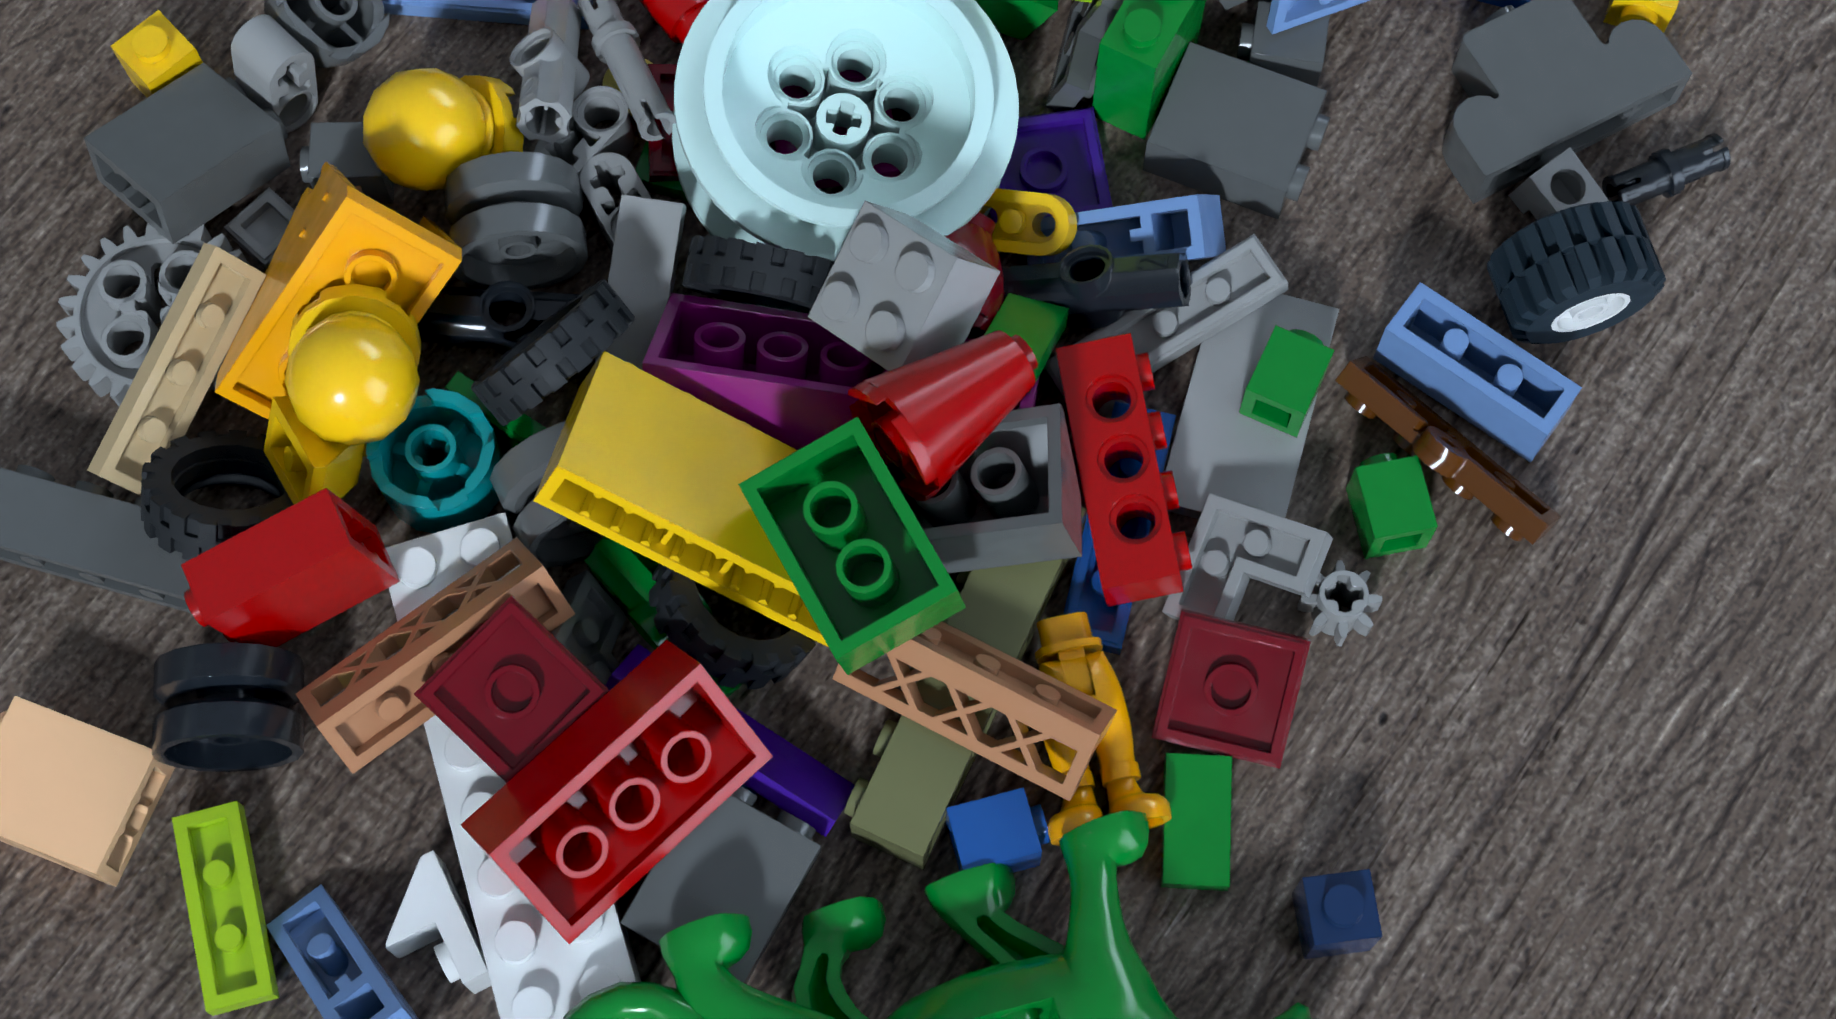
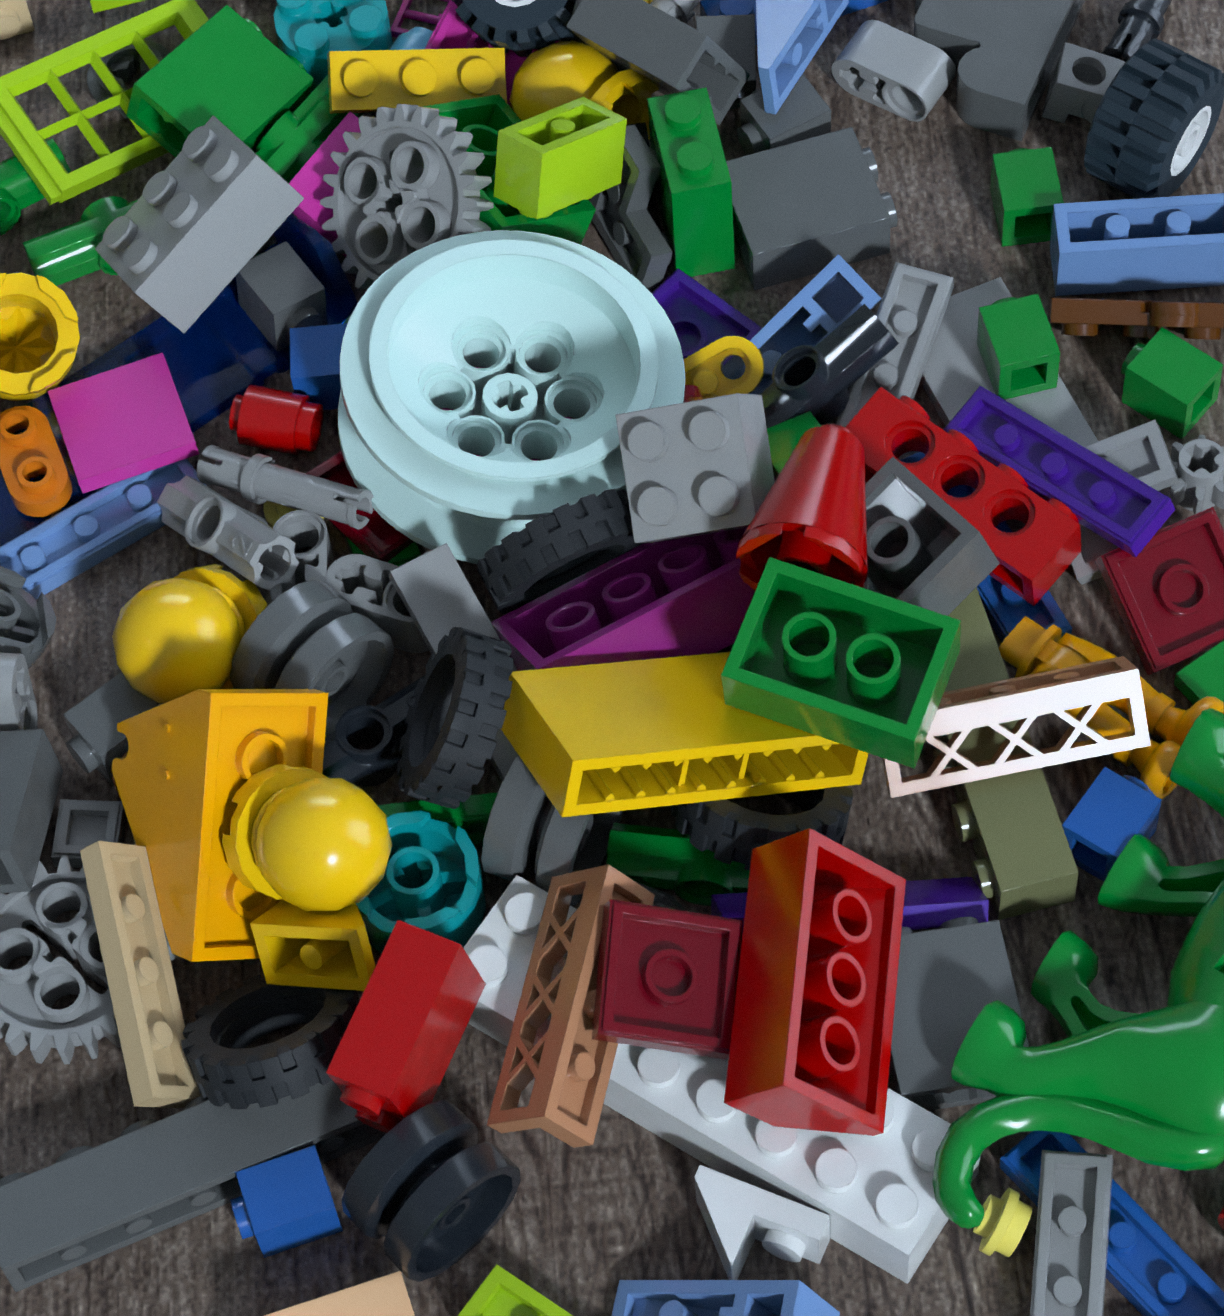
camera: 35 degrees left, 10 degrees down
(139, 625) = (285, 1202): none -> blue brick
(1216, 514) = (1061, 469): none -> dark purple tile
(1417, 65) = (893, 70): none -> light grey beam
(1423, 251) = (1024, 194): none -> green brick

